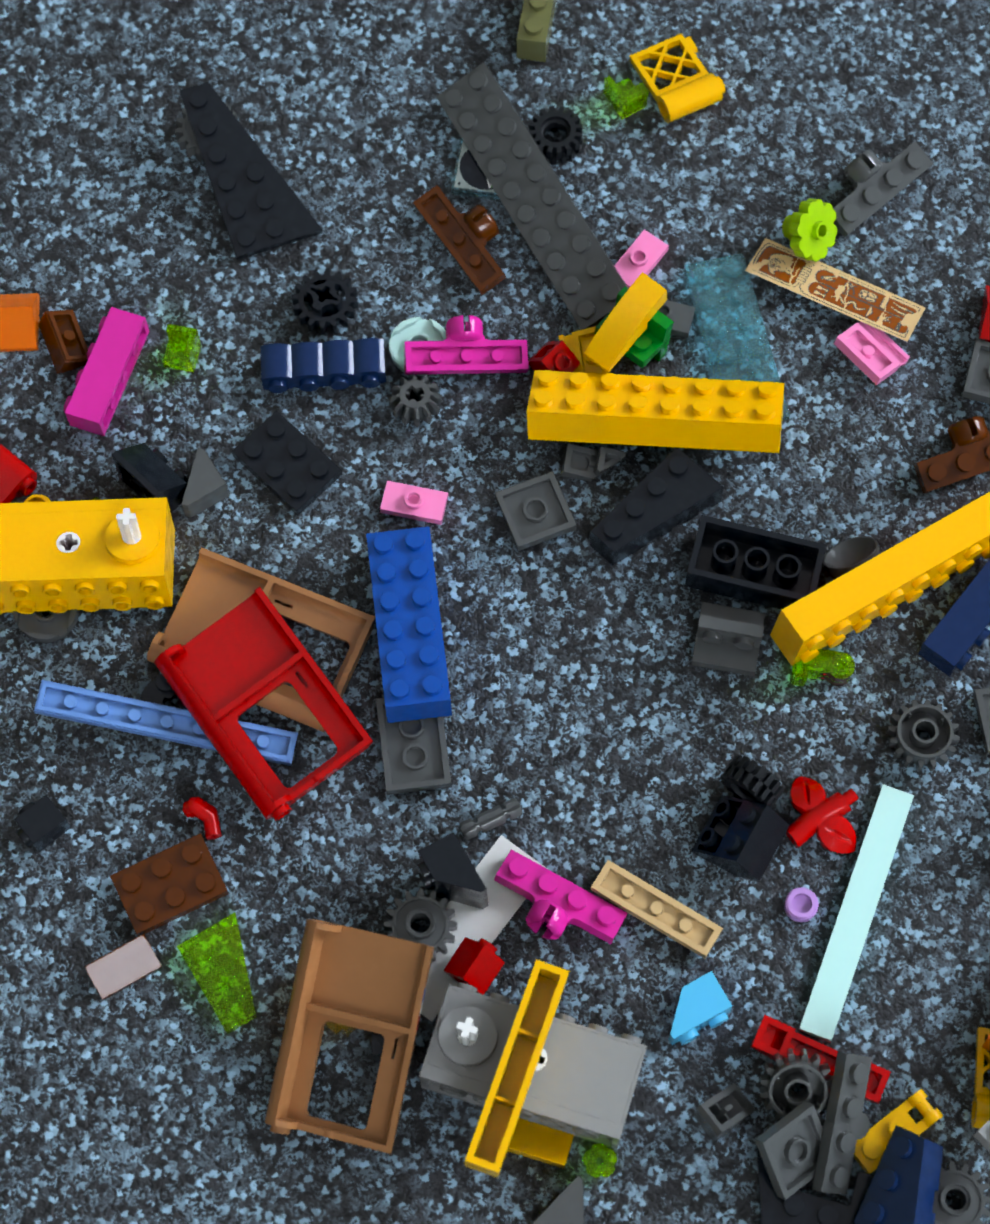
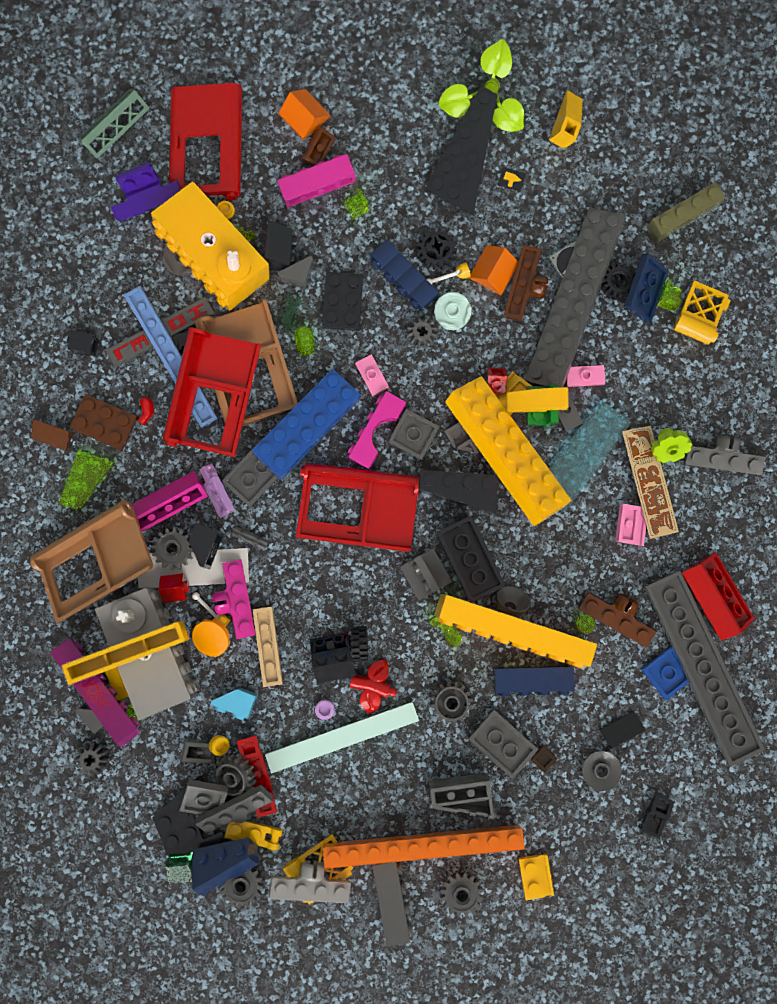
camera: 50 degrees right, 15 degrees up
(111, 745) = (174, 324): none -> dark grey tile
(170, 48) = (494, 61): none -> lime plant
(247, 538) = (288, 317): none -> clear green plate
(297, 545) = (304, 341): none -> clear neon green brick
(310, 39) = (568, 121): none -> yellow slope
(317, 155) = (511, 179): none -> black sticker
(354, 869) = (169, 500): none -> dark pink brick
(380, 295) = (462, 271): none -> hinge
(394, 809) = (216, 491): none -> lavender hinge
(410, 258) = (494, 268): none -> orange slope
(465, 352) = (465, 336): dark pink plate -> none
(504, 583) = (388, 410): none -> dark pink arch
(533, 1178) = (100, 697): none -> magenta brick
(568, 944) = (221, 618): none -> white hinge
(590, 970) = (211, 637): none -> light orange tile
(593, 109) = (646, 288): none -> dark blue plate
(599, 618) = (385, 513): none -> red piece
(737, 1079) = (219, 745): none -> yellow tile
(951, 499) = (585, 623): none -> clear neon green tile

